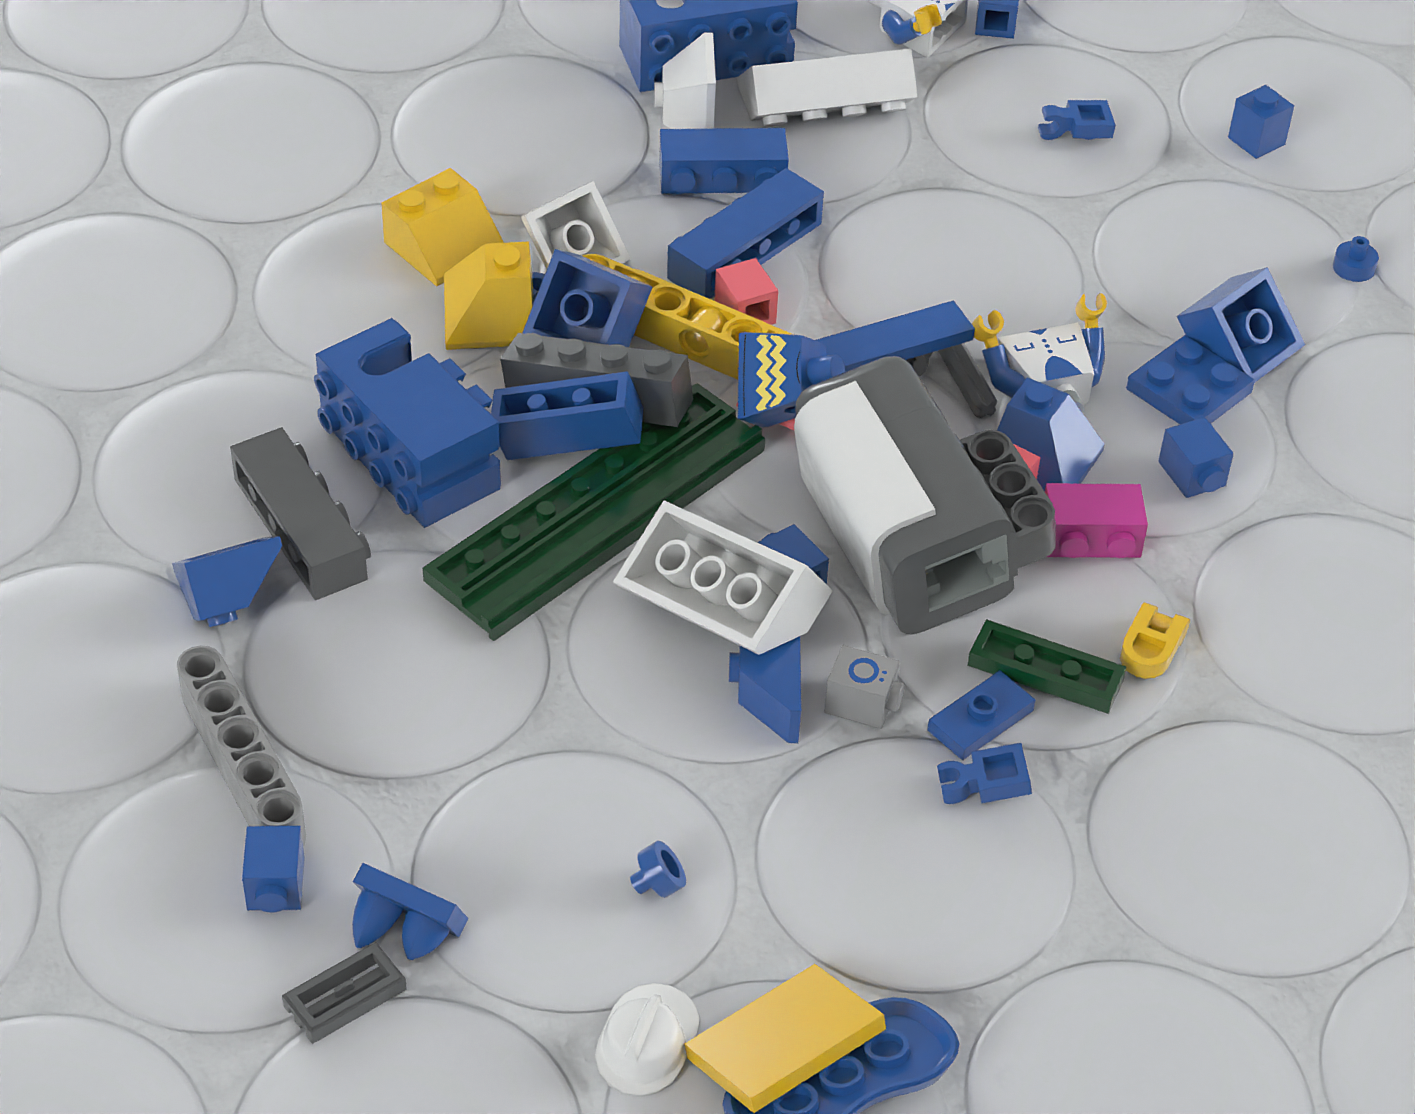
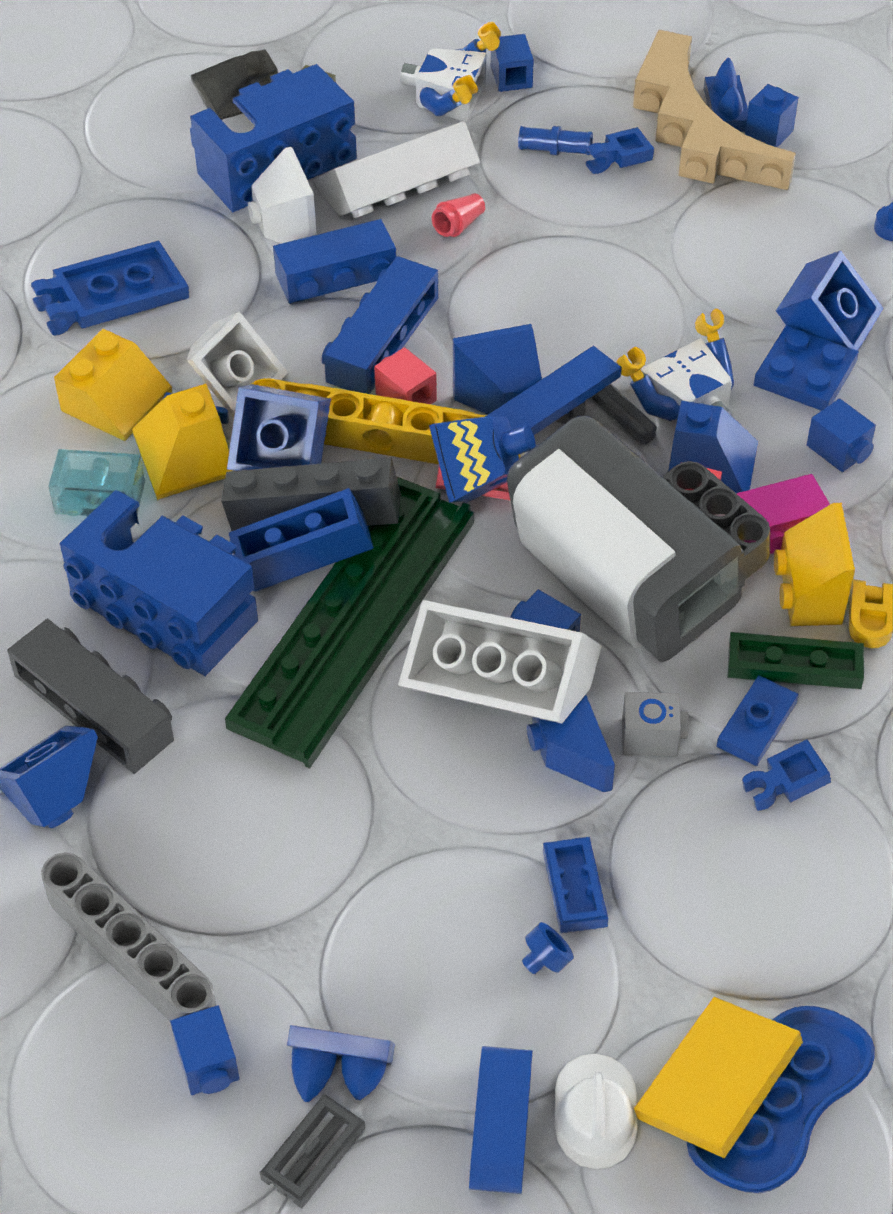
camera: 15 degrees left, 5 degrees up
(375, 300) = (87, 478): none -> clear light blue brick
(480, 134) = (109, 287): none -> blue tile
(542, 1015) = (501, 1120): none -> blue beam
(715, 819) = (575, 885): none -> blue plate
(840, 294) = (494, 367): none -> blue slope
(873, 144) = (456, 215): none -> coral cone
(1010, 94) = (554, 140): none -> blue pin
(1101, 581) = (816, 569): none -> yellow slope
(1172, 126) = (684, 120): none -> tan arch
(1219, 92) = (726, 96): none -> blue tile

